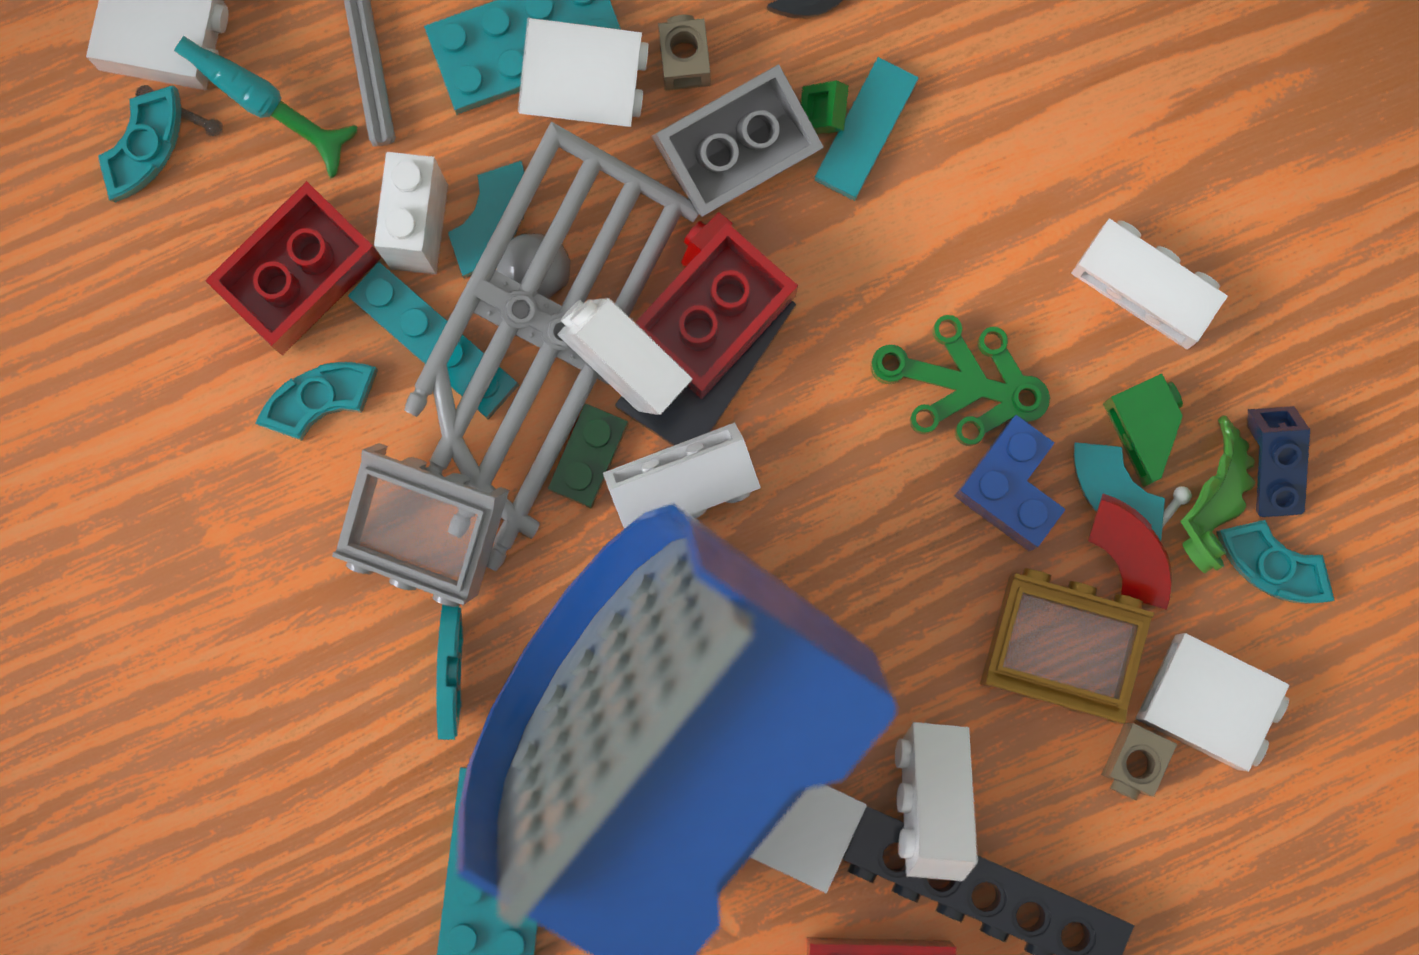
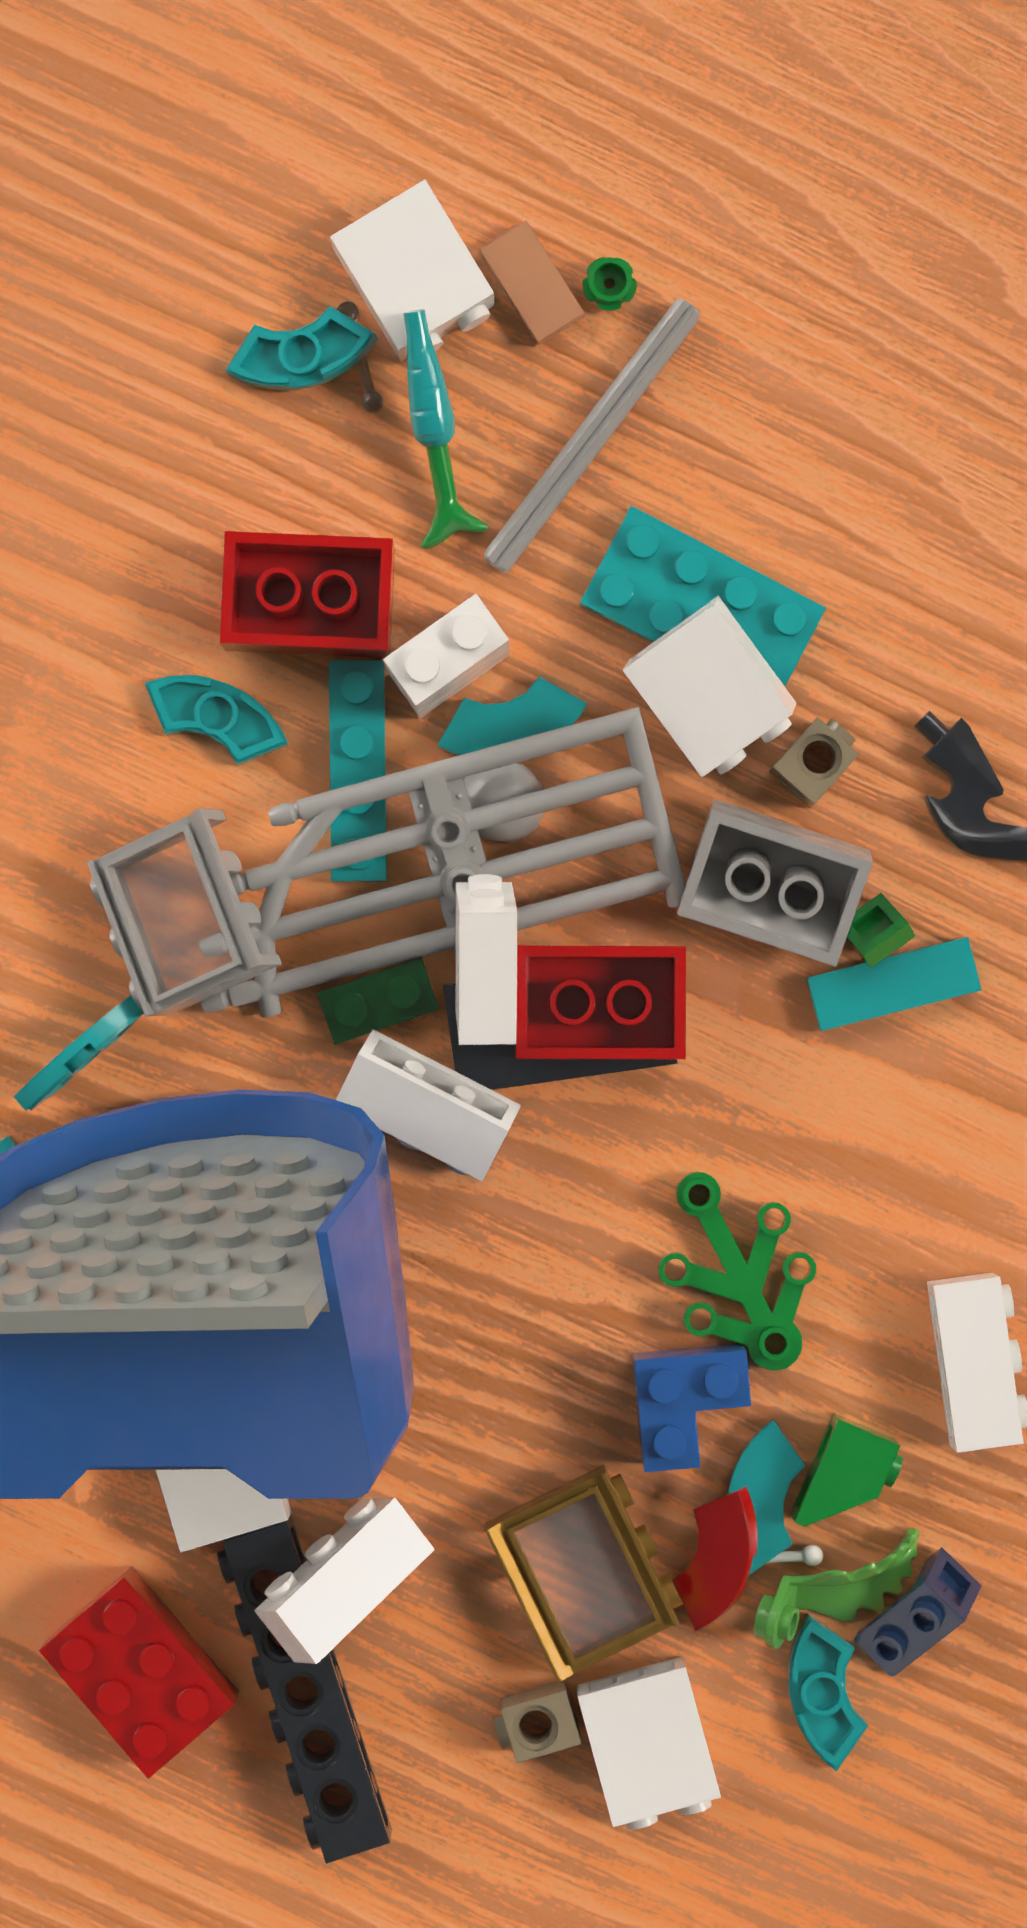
camera: 50 degrees right, 5 degrees up
(700, 236) = (659, 931): red plate -> none

